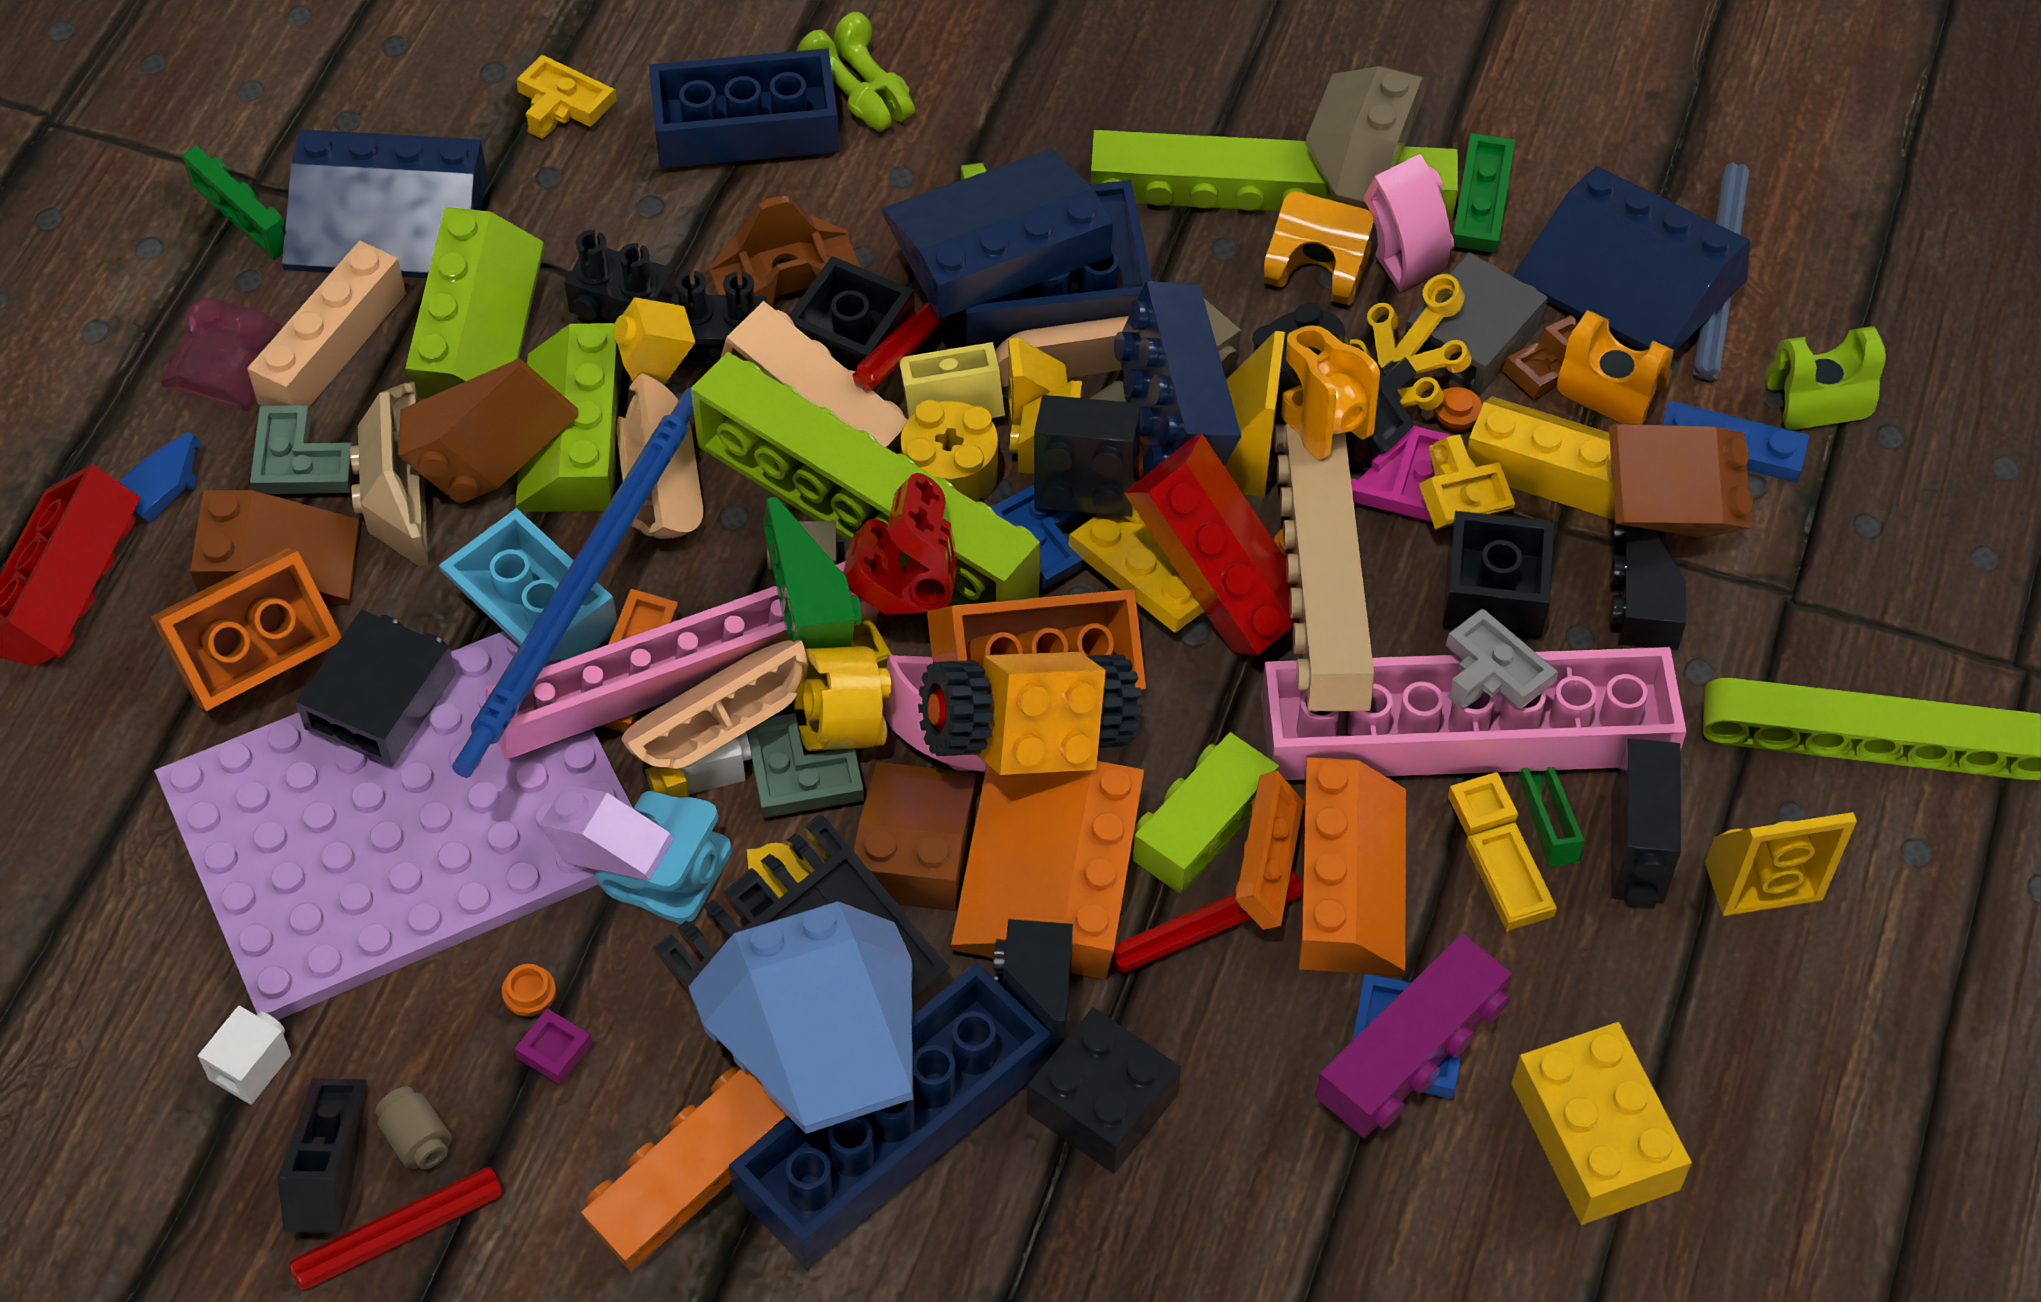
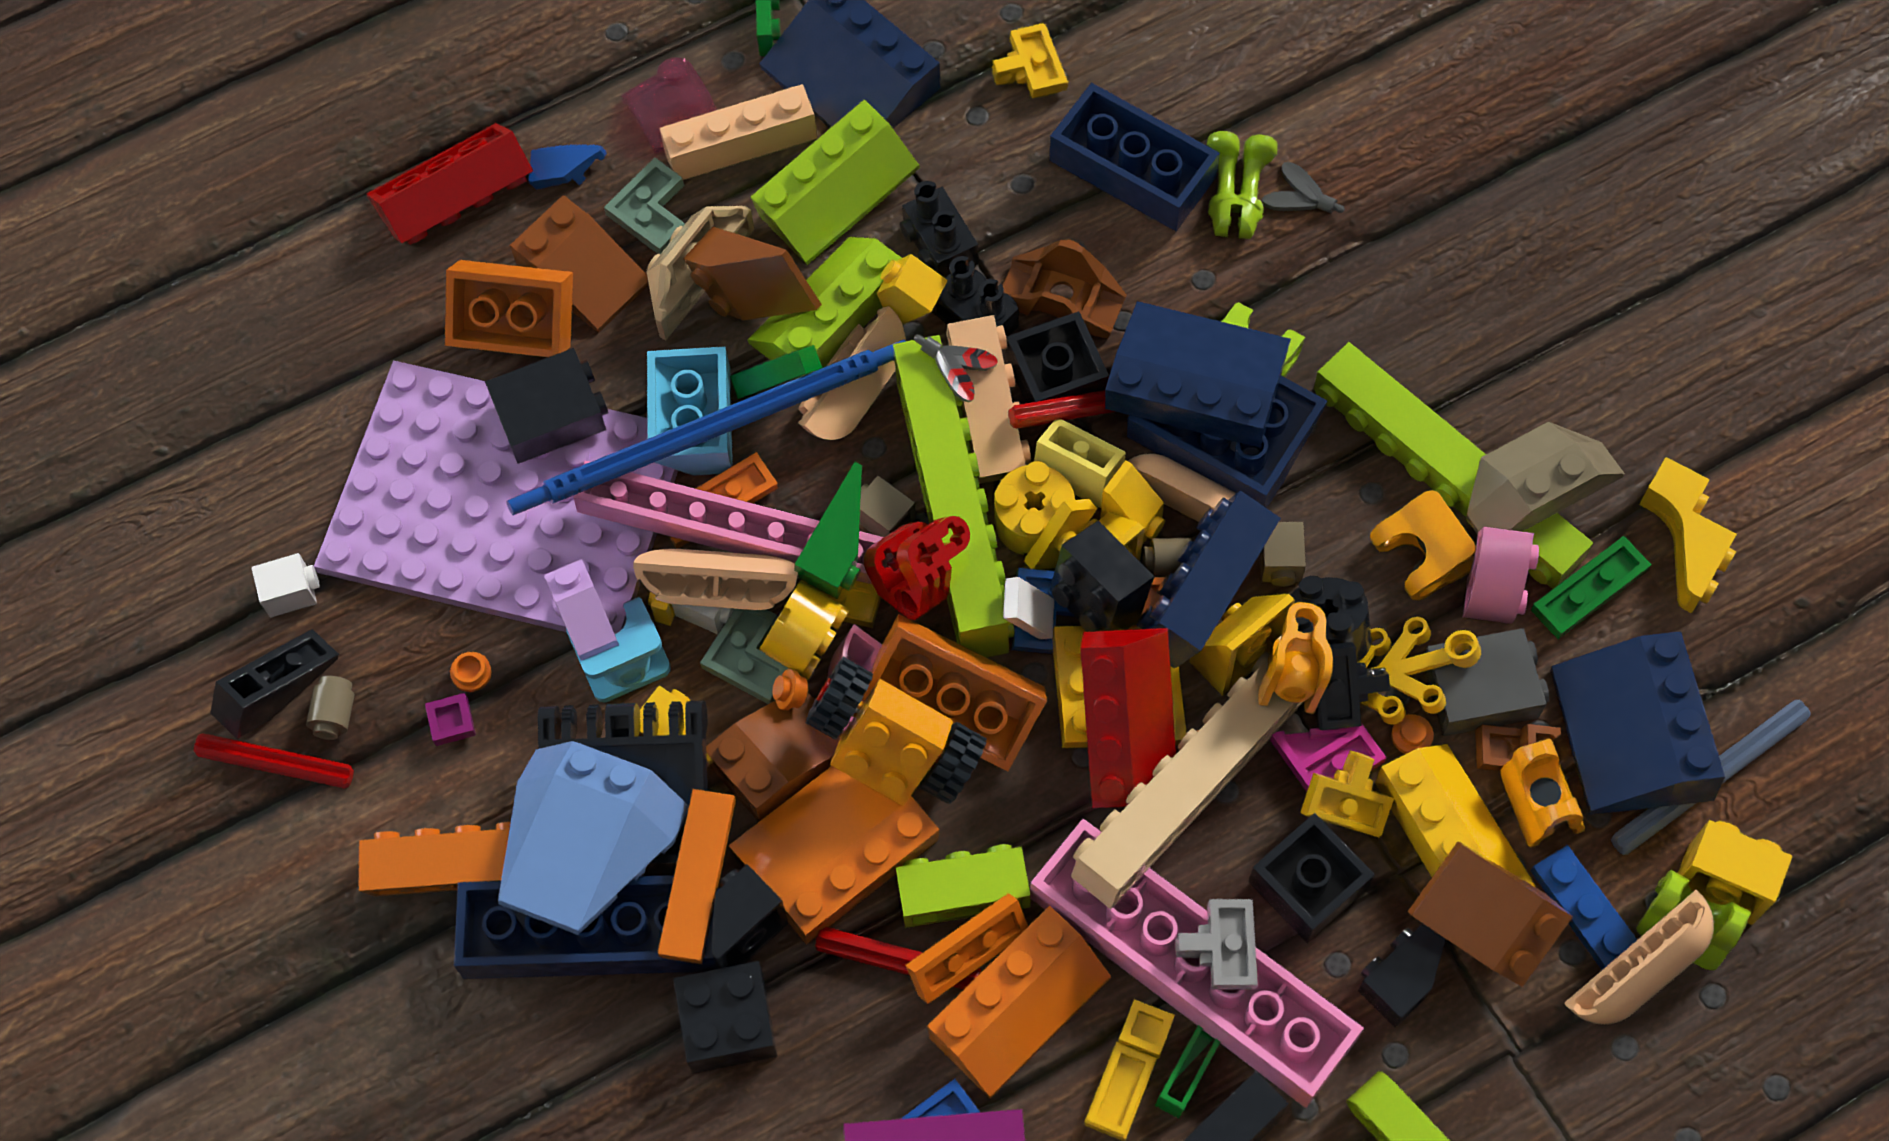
camera: 45 degrees right, 10 degrees up
(588, 498) = (776, 371): none -> green piece
(770, 364) = (953, 362): none -> piece
(879, 761) = (790, 690): none -> orange plate
(924, 48) = (1306, 193): none -> dark grey piece
(966, 973) = (697, 876): none -> orange tile
(1001, 452) = (1065, 524): none -> yellow plate
(1040, 523) = (1028, 608): none -> white tile
(1531, 99) = (1698, 542): none -> yellow arch
(1819, 306) = (1735, 868): none -> yellow brick
(1831, 433) = (1647, 964): none -> light nougat brick

